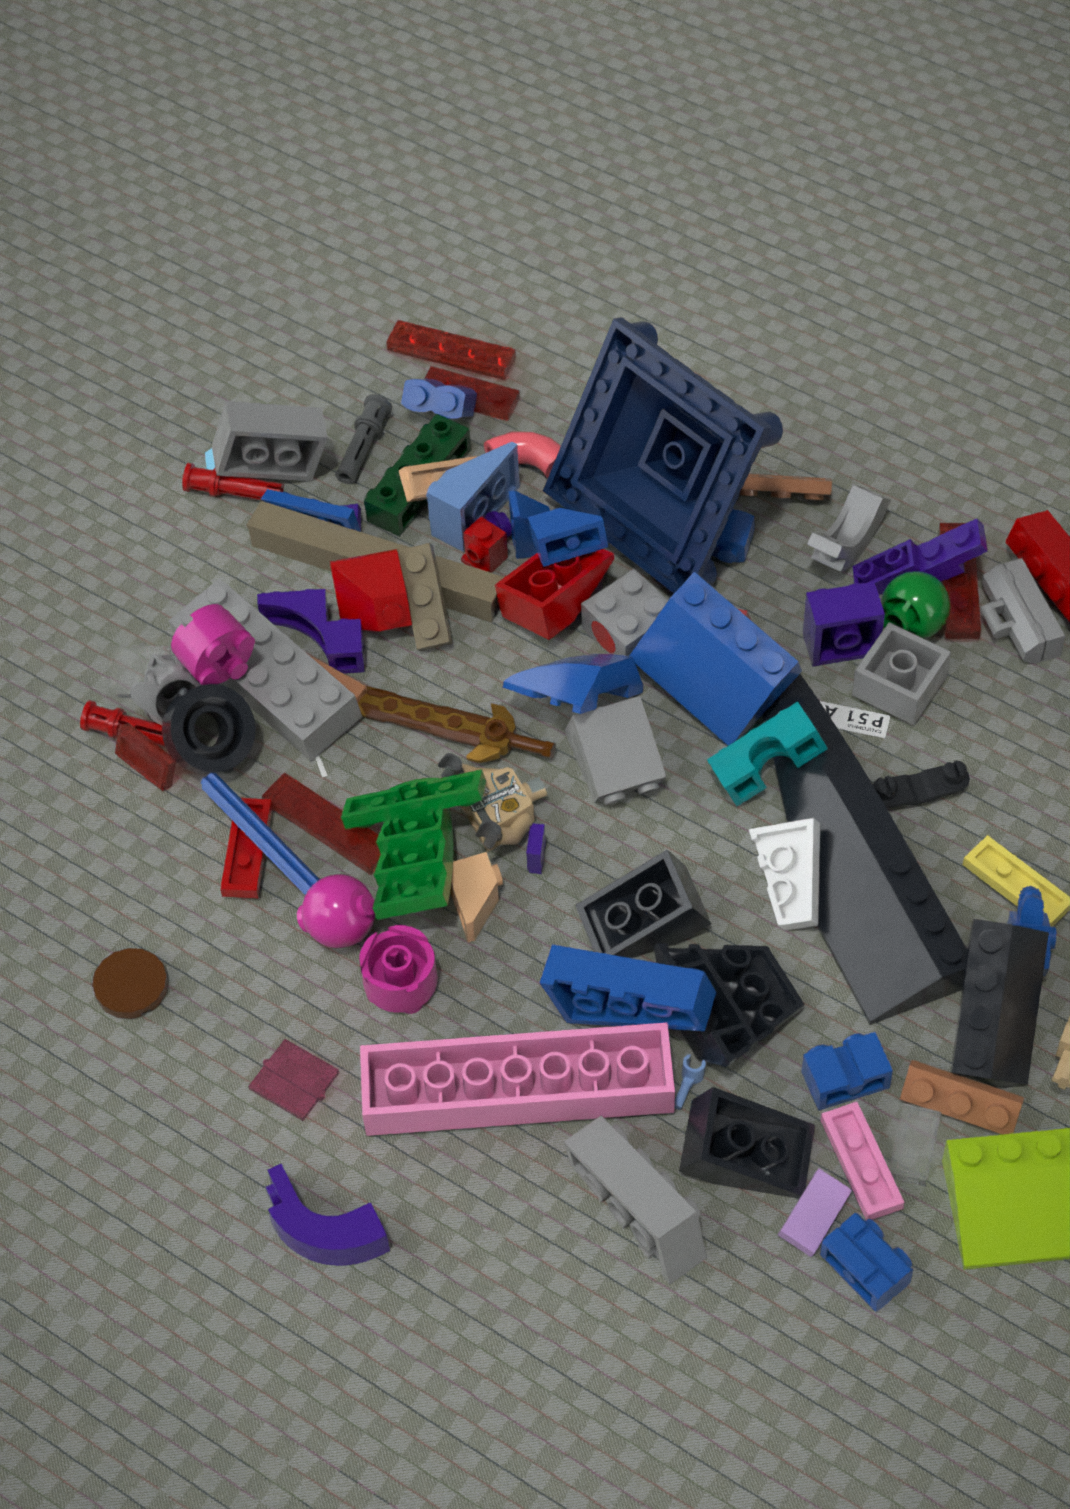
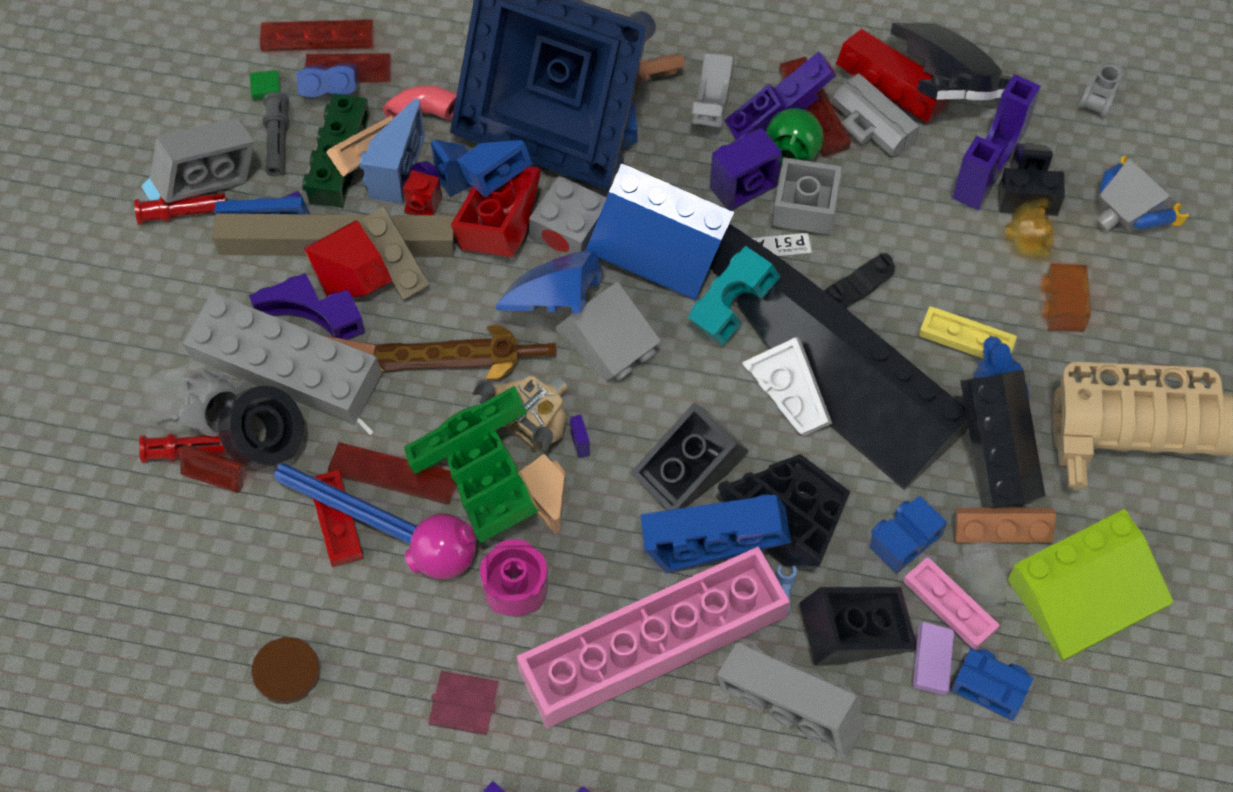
camera: 25 degrees left, 5 degrees up
(213, 645) = (240, 354): dark pink brick -> none
(374, 383) = (264, 83): none -> green tile

